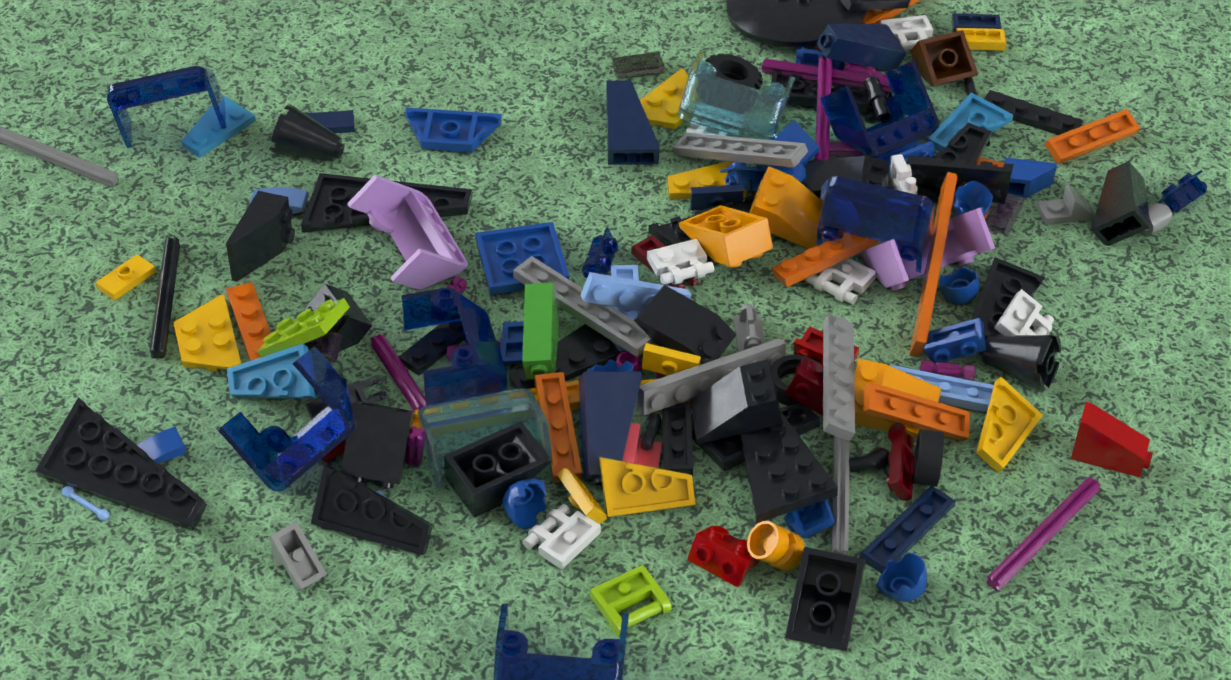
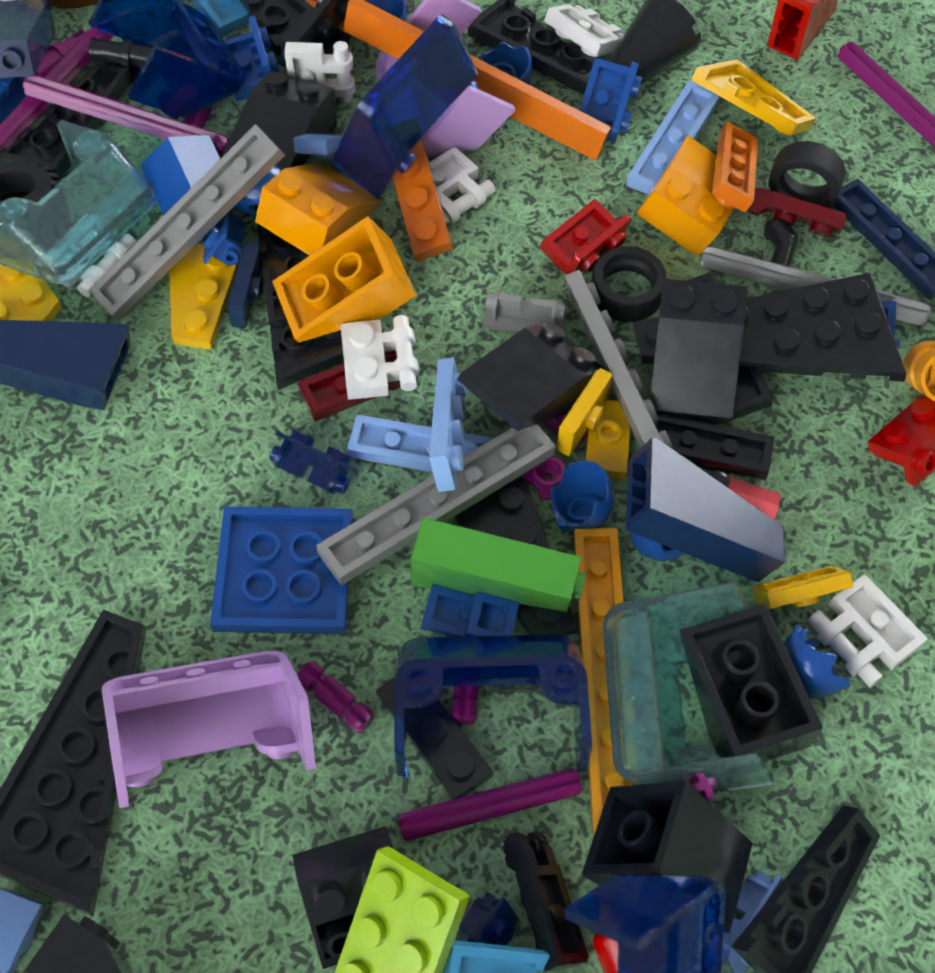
camera: 75 degrees left, 15 degrees up
(555, 405) = (629, 578): orange plate -> none
(642, 488) = (804, 505): yellow wing -> none
(808, 385) = (670, 250): dark red bracket -> none
(838, 377) = (688, 223): light grey plate -> none
(949, 369) = (638, 128): magenta axle -> none

